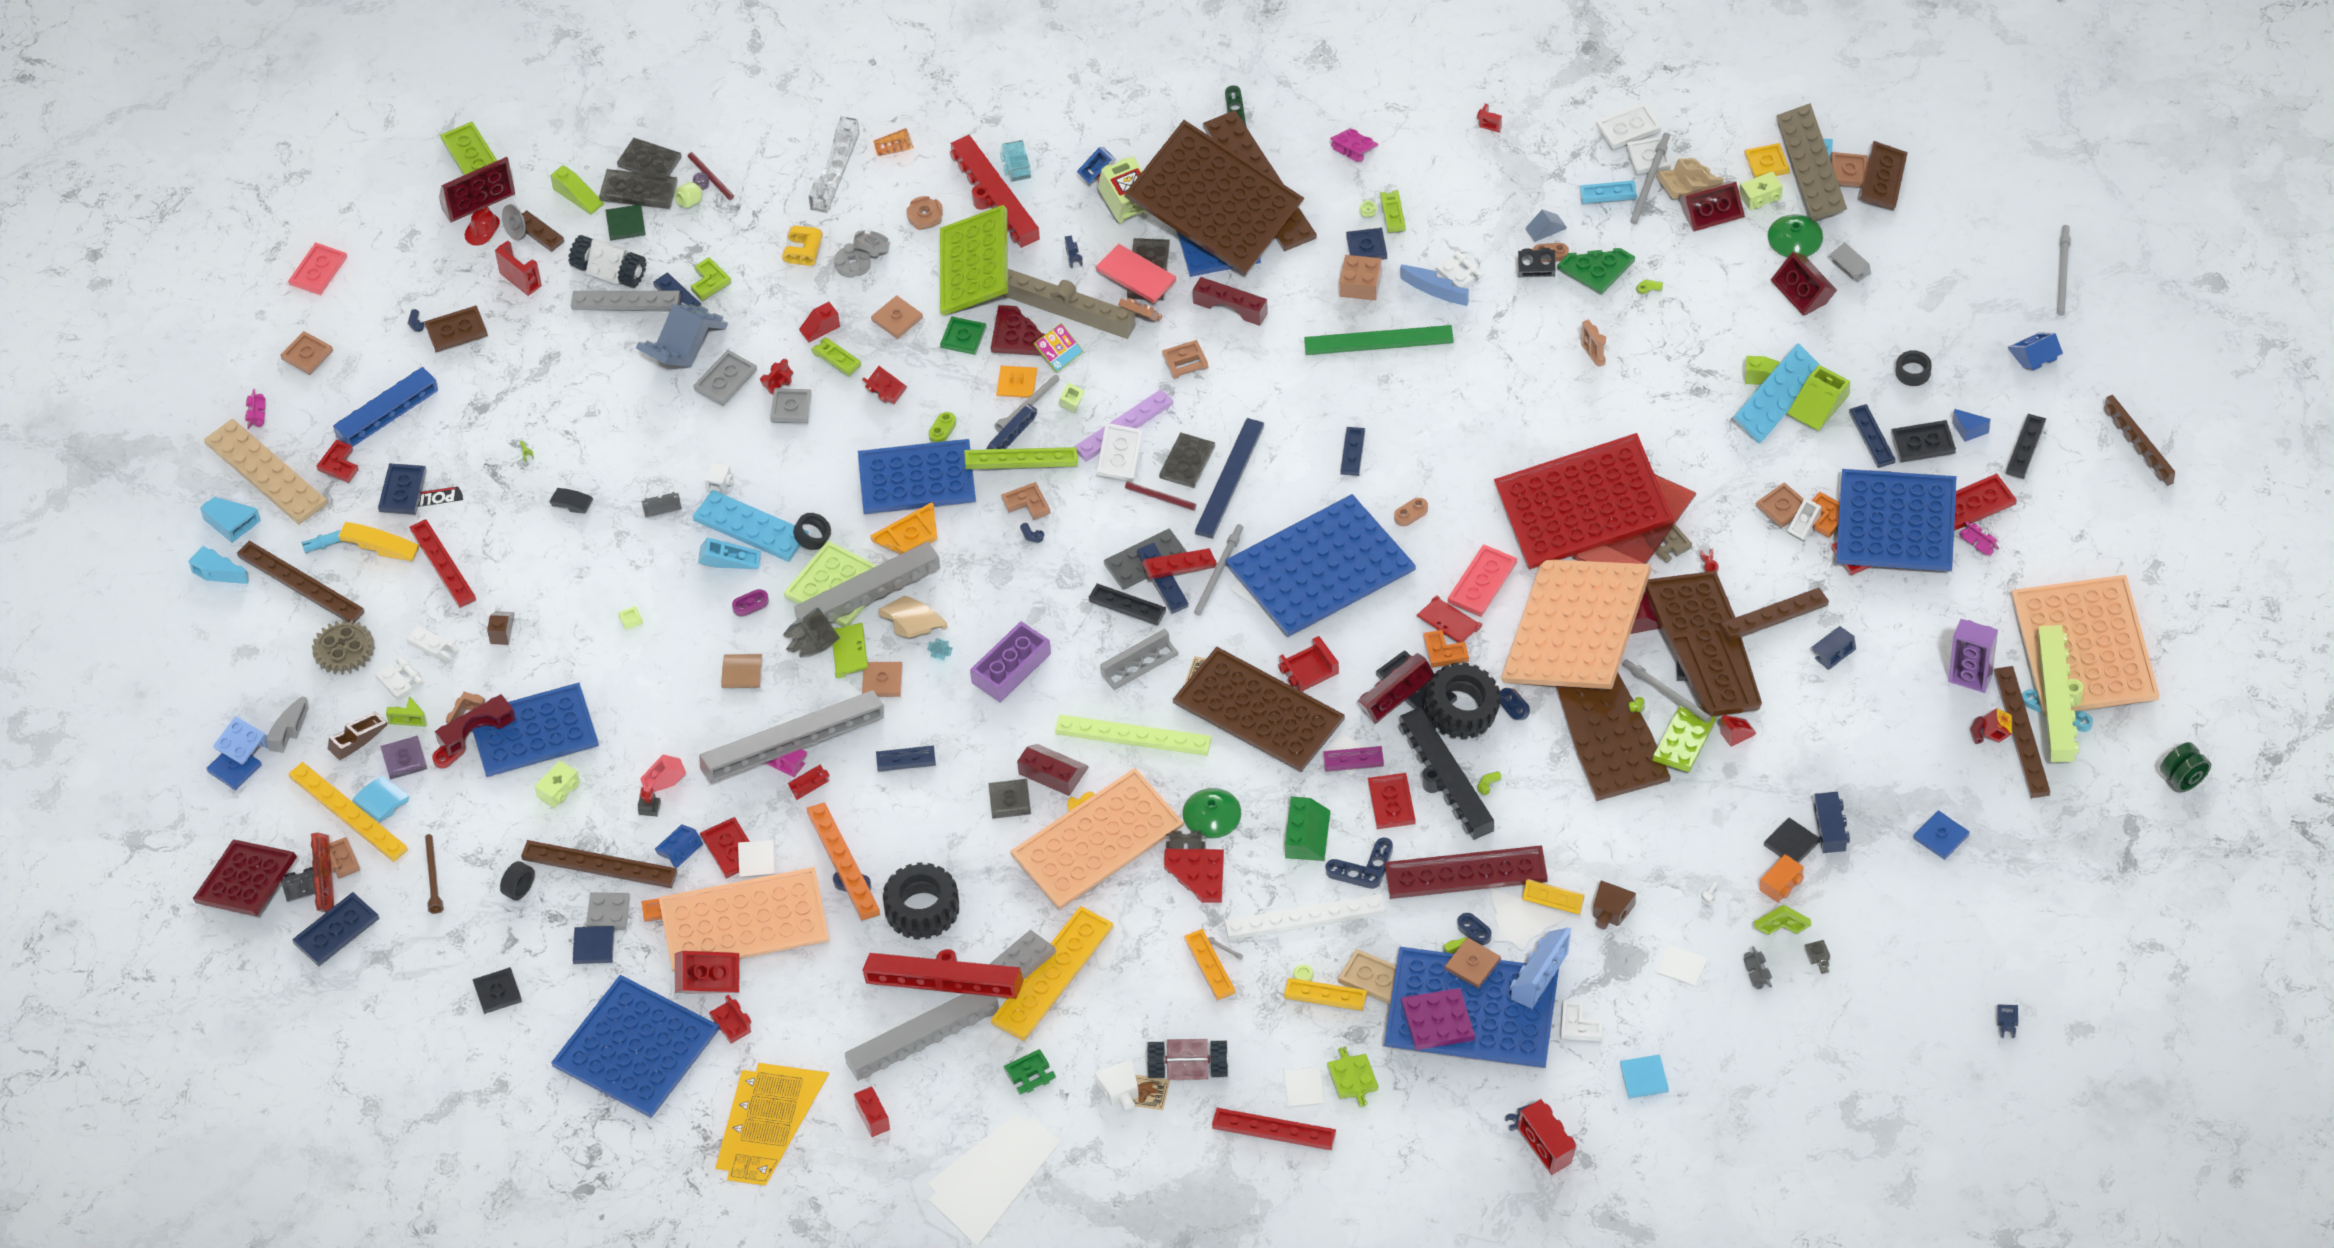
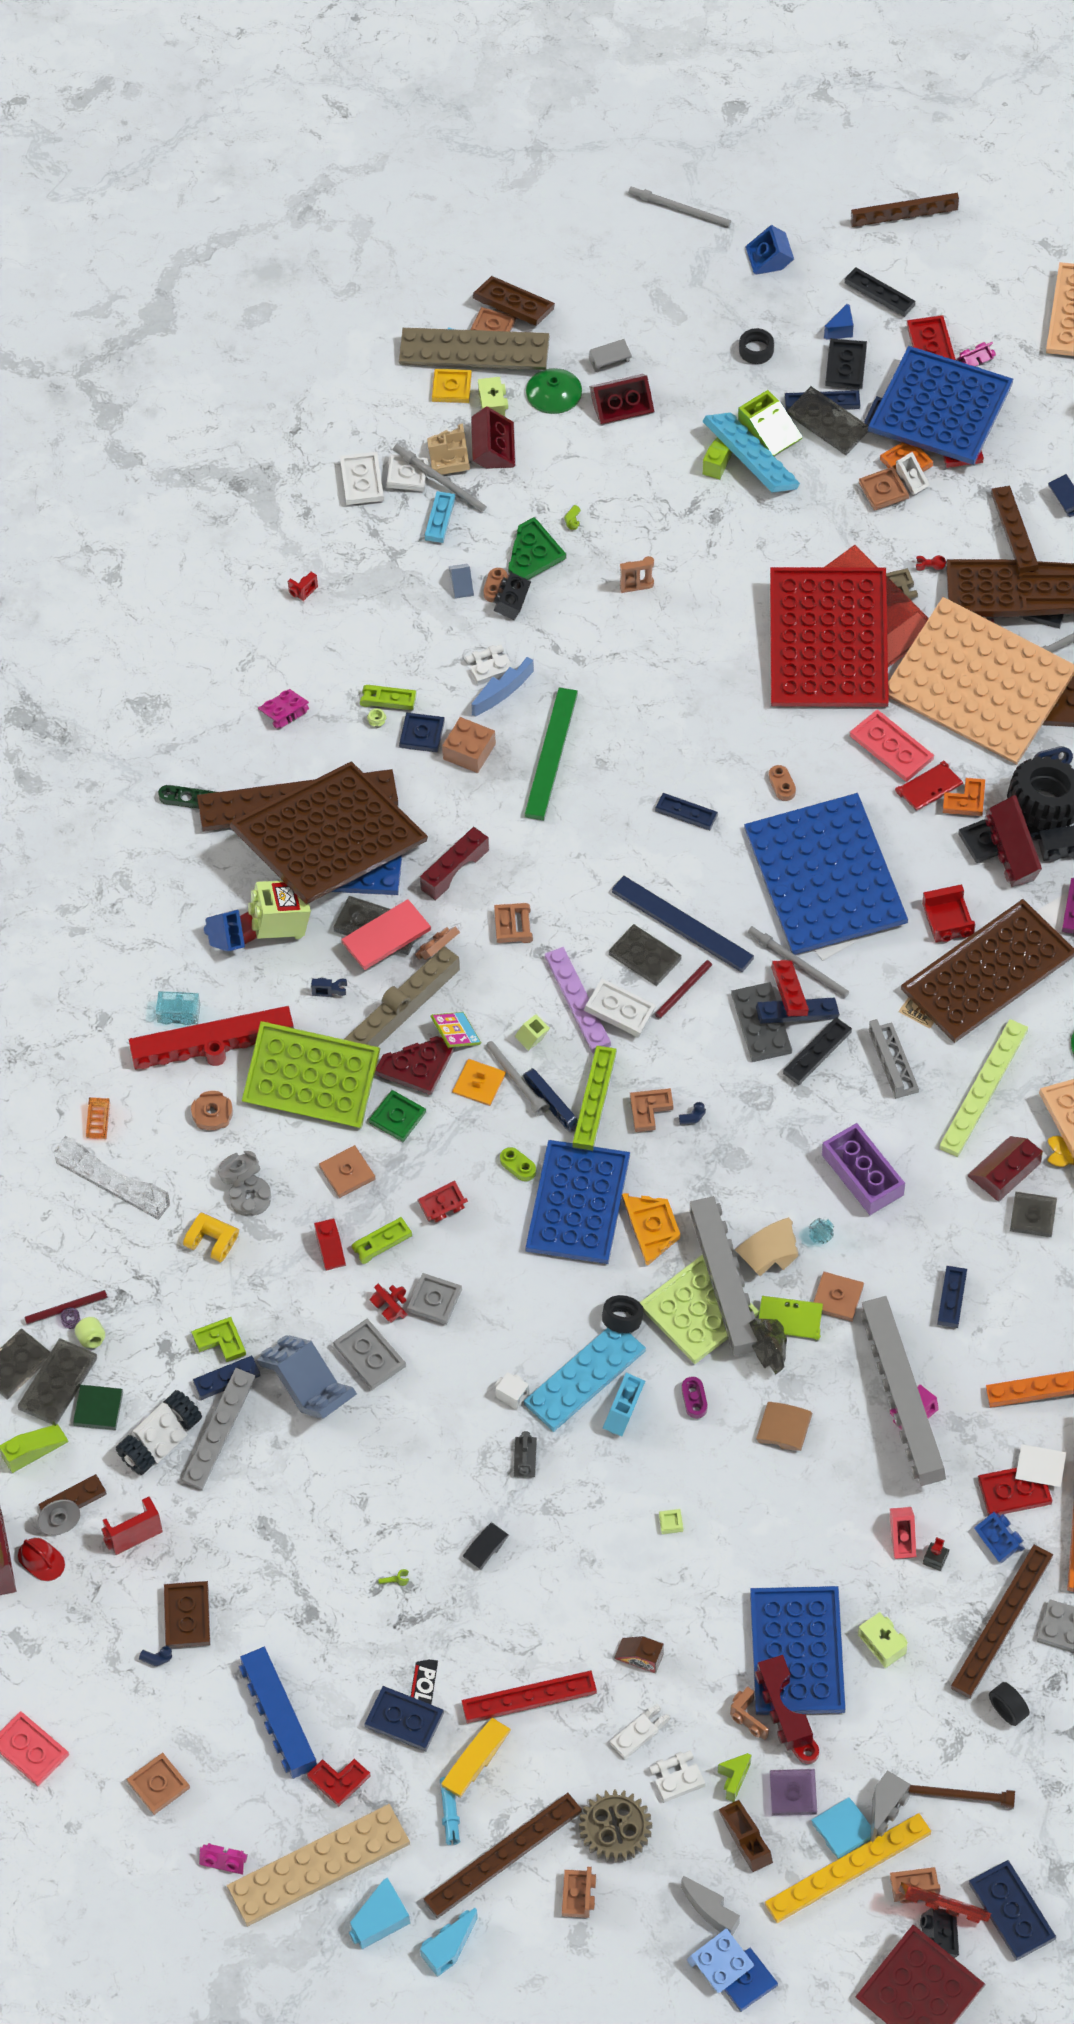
camera: 75 degrees left, 5 degrees up
(279, 638) = (577, 1893): none -> nougat bracket
(406, 817) = (886, 1800): none -> light grey slope
(808, 781) = (959, 1400): red hinge -> none
(1843, 441) = (828, 420): none -> clear smoke plate

